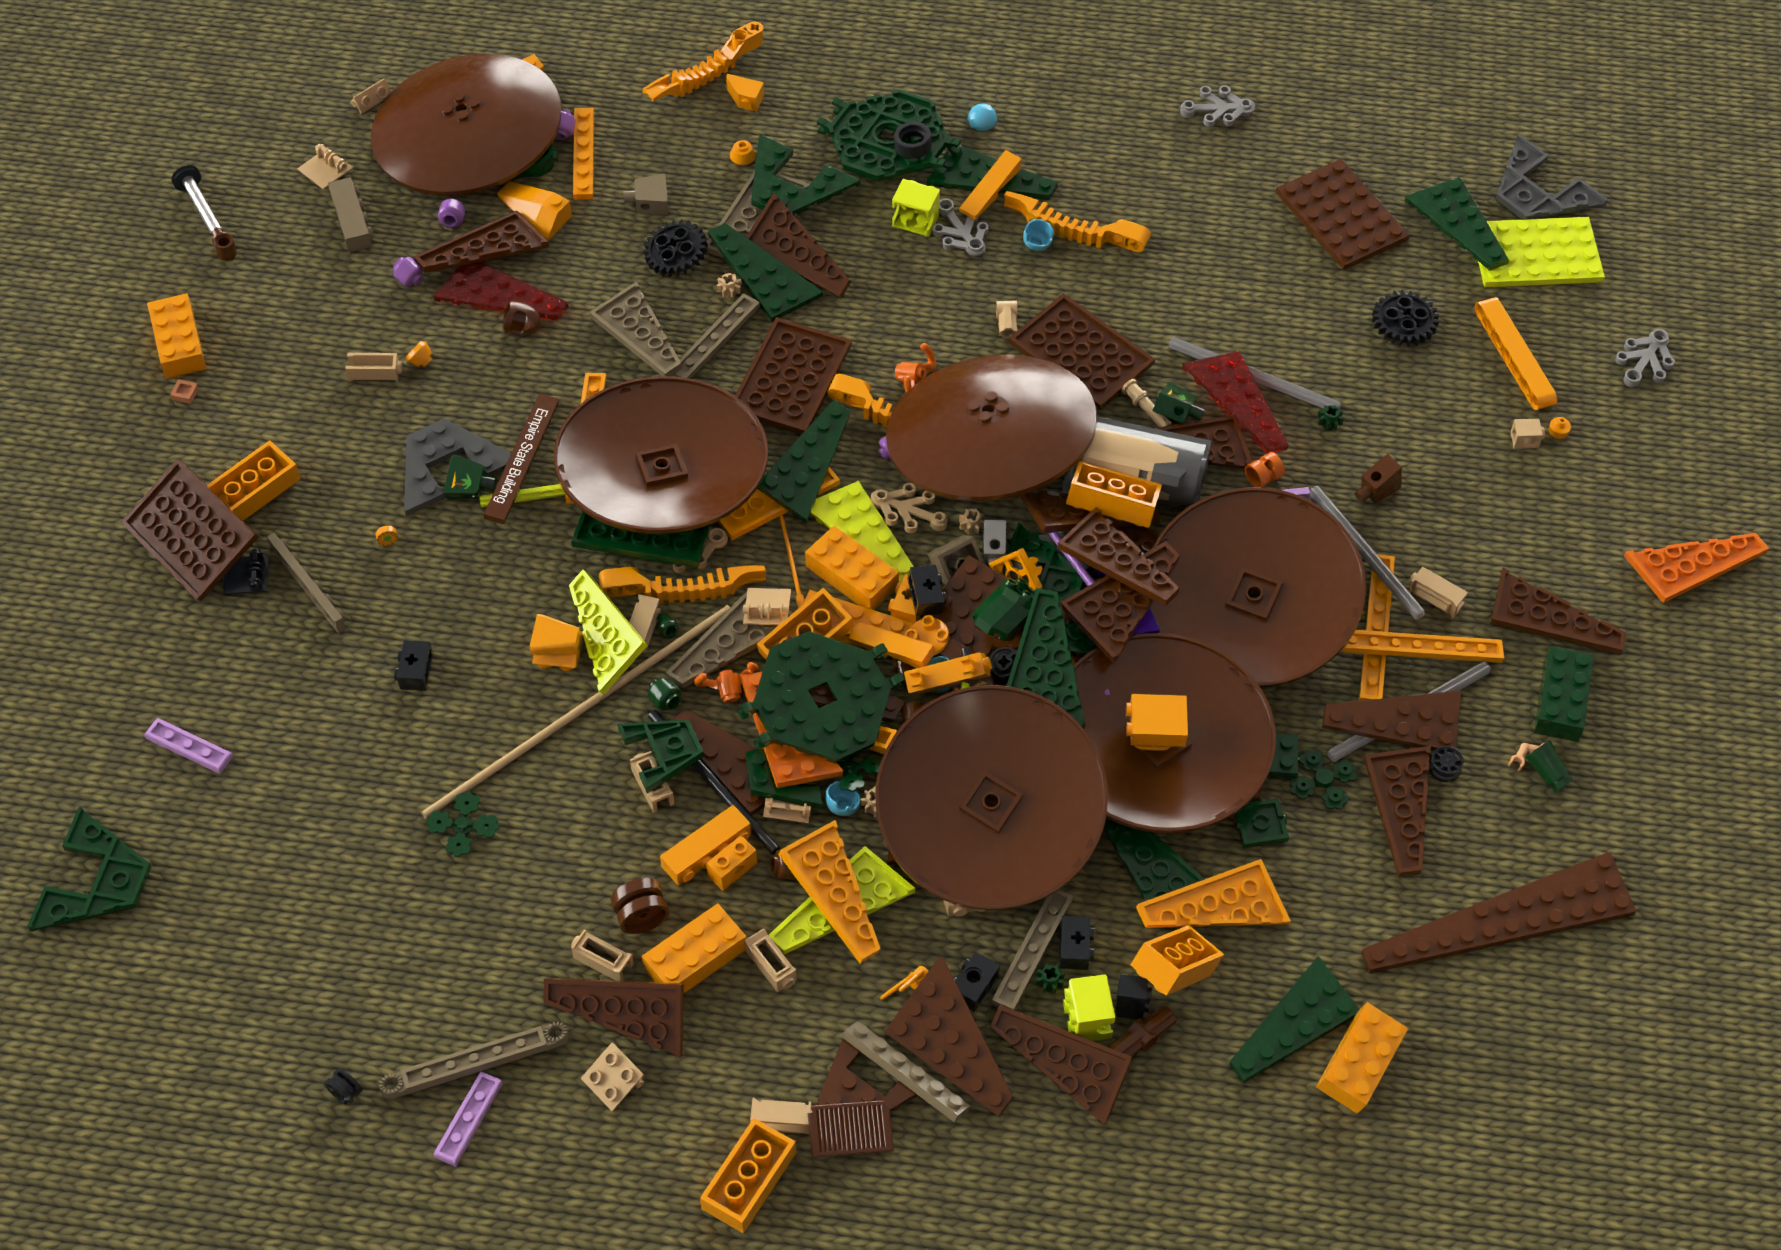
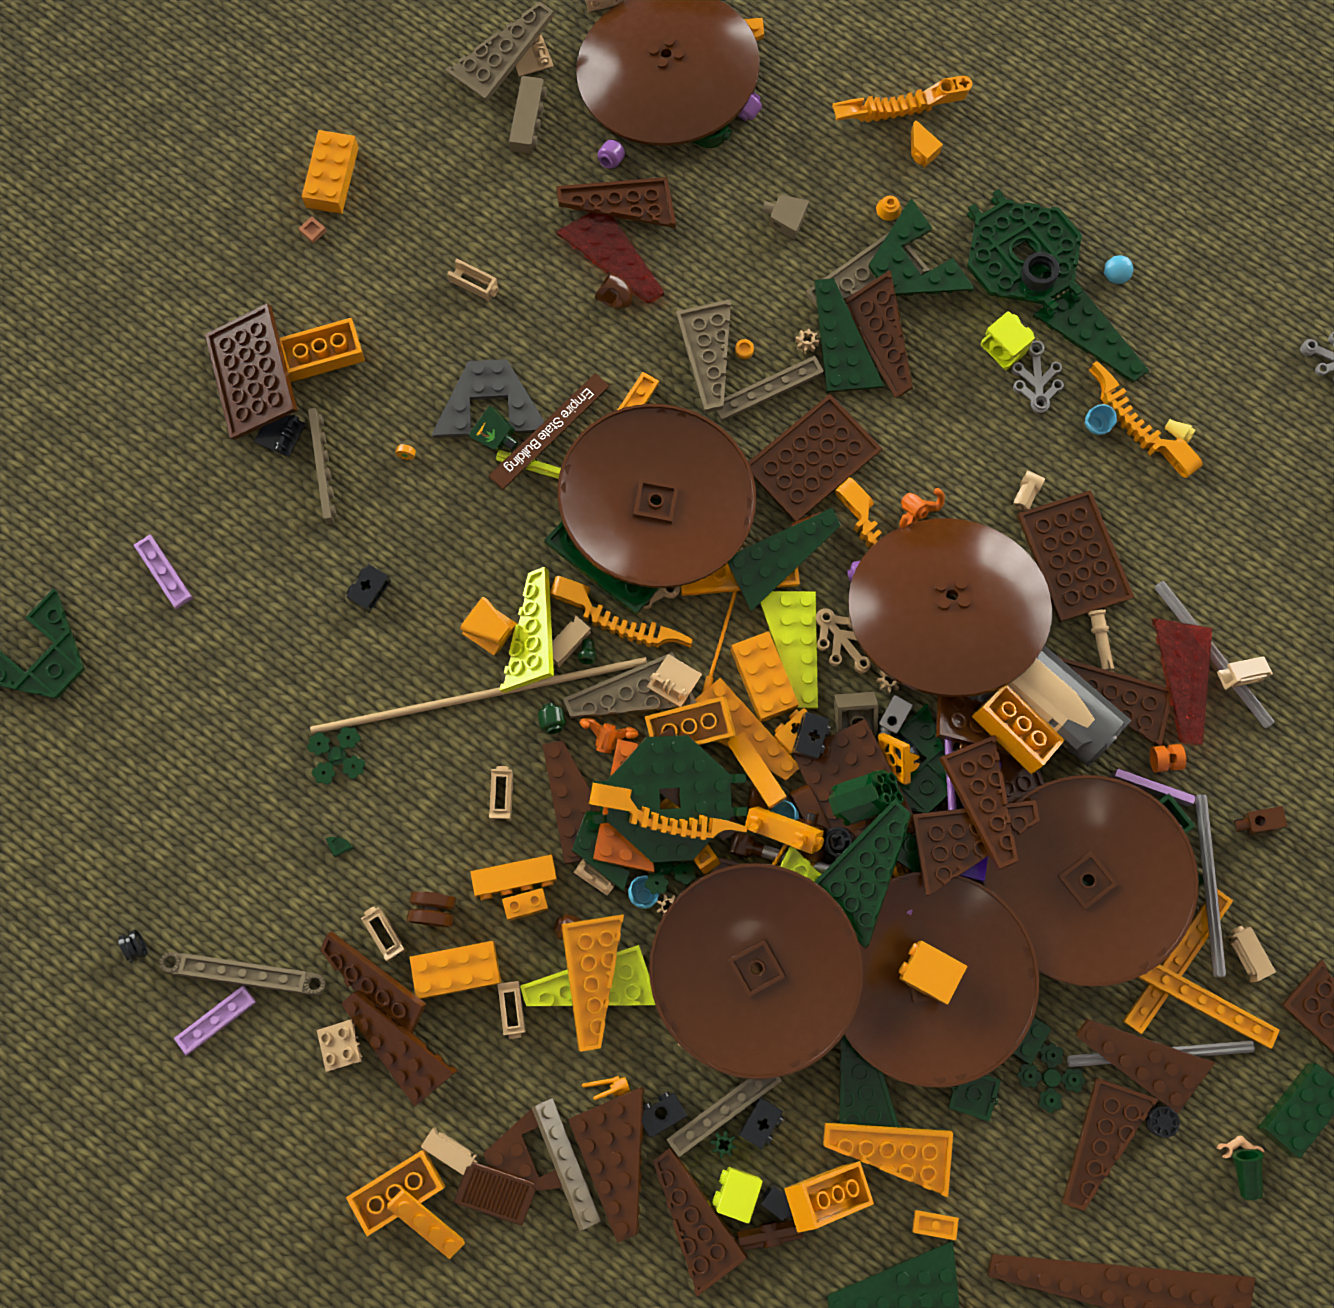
camera: 25 degrees right, 20 degrees up
(187, 179) = (410, 16): piece -> none
(295, 176) = (498, 55): none -> dark tan wing
(407, 271) = (546, 197): medium lavender head -> none
(419, 355) = (516, 286): light orange cone -> none
(510, 903) = (338, 845): none -> dark green tile
(540, 207) = (686, 183): light orange wedge -> none
(583, 154) = (753, 142): light orange plate -> none
(672, 318) = (744, 349): none -> light orange tile
(672, 745) = (531, 773): dark green wing -> none
(675, 248) = (781, 281): black gear -> none
(687, 1050) = (401, 1052): none -> reddish brown wing
(721, 790) = (551, 819): black piece -> none
(775, 707) = (620, 799): none -> light orange piece
(796, 1184) = (426, 1223): none -> light orange plate
(930, 631) = (792, 776): light orange dish -> none
(987, 190) = (1086, 347): light orange slope -> none
(1113, 215) = (1180, 430): none -> light yellow cone
(1177, 404) = (1128, 654): dark green torso -> none
(1290, 371) = (1245, 672): none -> window
(1293, 950) = (935, 1225): none -> light orange plate
(1330, 417) = (1253, 736): dark green gear -> none

